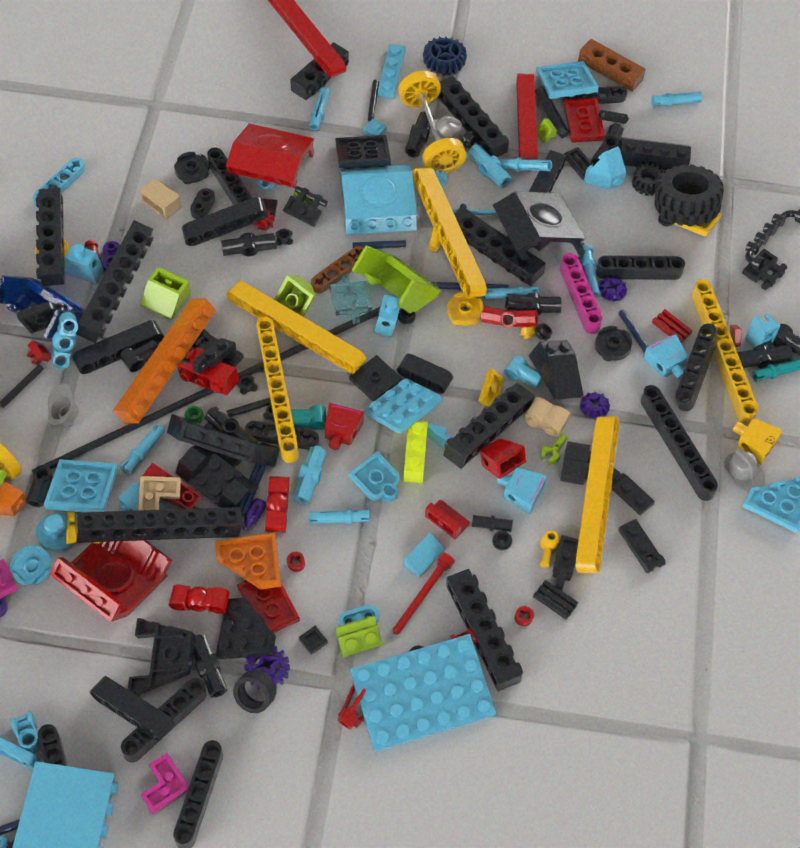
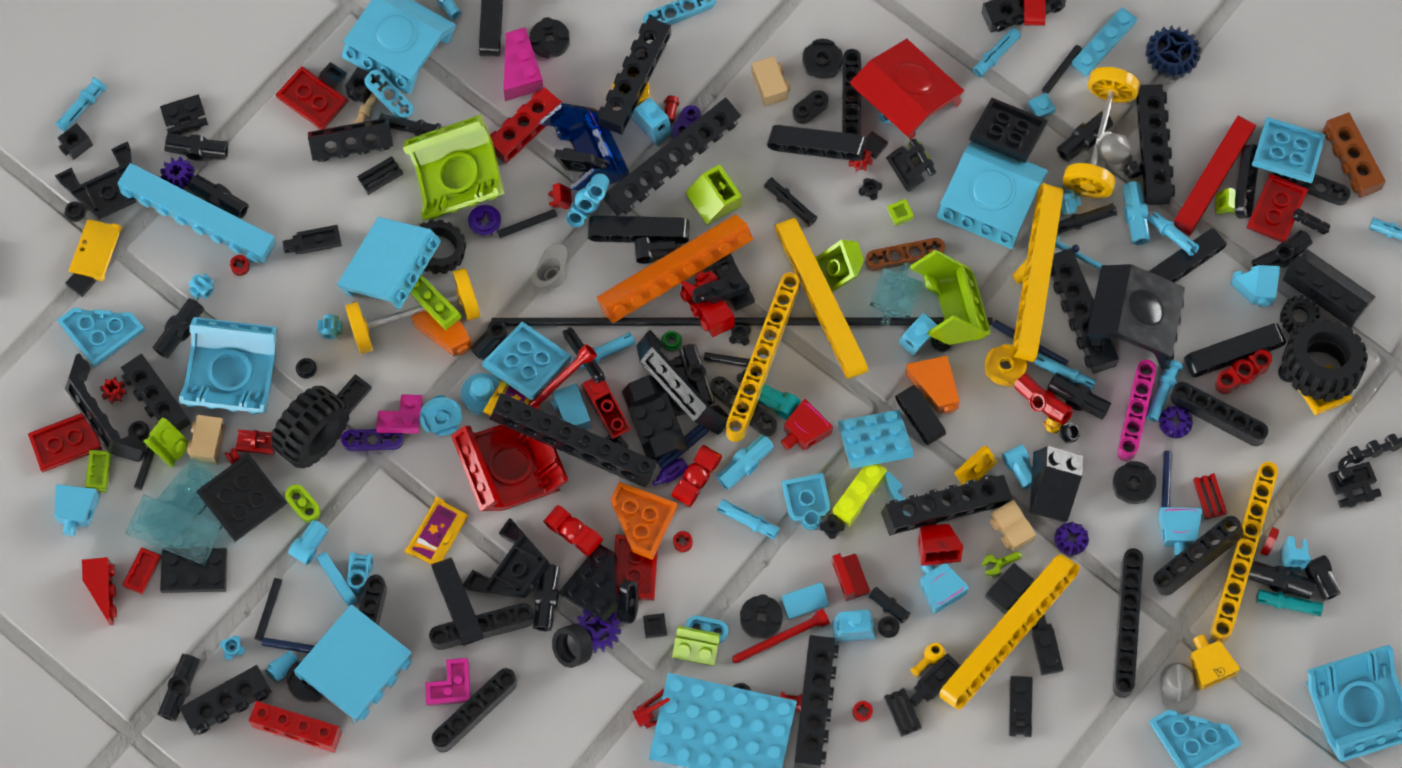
camera: 35 degrees right, 10 degrees up
(77, 656) = (437, 529): none -> door
(129, 457) = (576, 344): none -> black axle
(132, 451) = (585, 355): none -> red piece
(154, 488) = (588, 402): tan plate -> none
(230, 273) = (783, 195): none -> black pin
(248, 244) = (829, 179): black piece -> none
(279, 627) = (628, 601): none -> black plate
(318, 241) = (900, 212): none -> lime tile
(375, 378) = (869, 394): black plate -> none
(382, 244) = (963, 246): dark blue bar -> none
(392, 576) = (773, 617): none -> black plate
(404, 491) = (832, 532): none -> black plate
(422, 343) = (935, 383): none -> orange slope
(452, 189) = (1077, 221): none -> black pin
(478, 550) = (853, 626): none -> medium azure torso
(577, 163) = (1238, 241): black tile -> none
(620, 221) = (1236, 348): none -> black beam
(636, 232) = (1250, 365): none -> red piece

